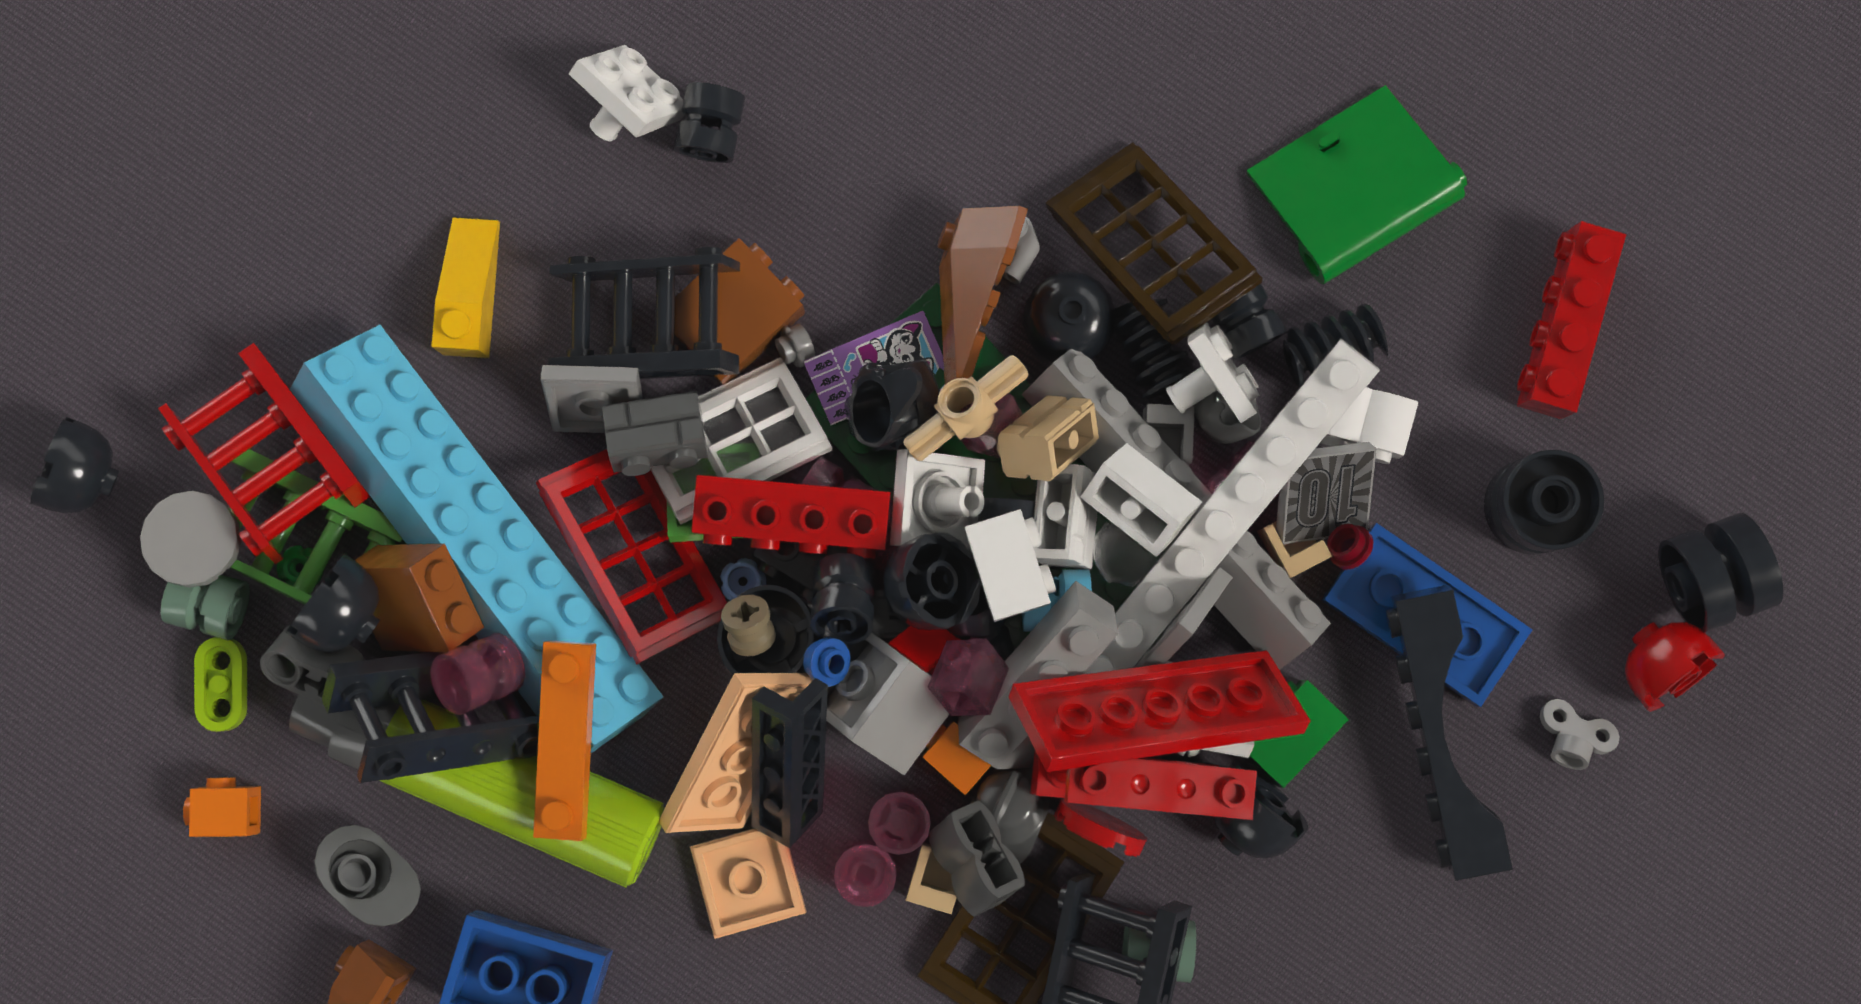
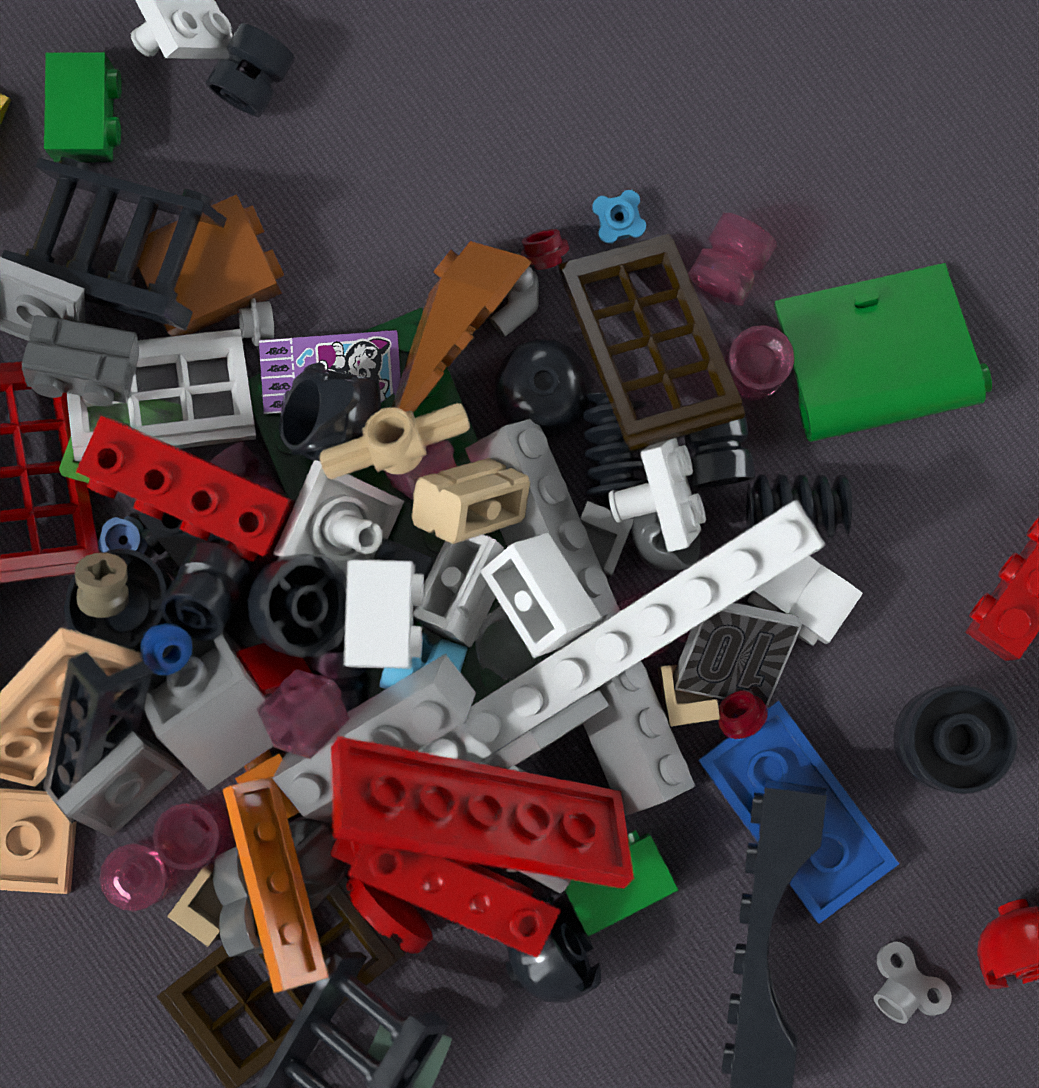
camera: 20 degrees right, 0 degrees up
(568, 208) = (81, 106): none -> green brick
(823, 798) = (120, 785): none -> light grey tile
(995, 836) = (275, 884): none -> orange plate
(1028, 192) = (544, 248): none -> dark red plate
(1079, 154) = (614, 230): none -> dark azure plate
(1199, 137) = (736, 252): none -> clear pink wheel
(1256, 227) = (759, 361): none -> clear pink wheel

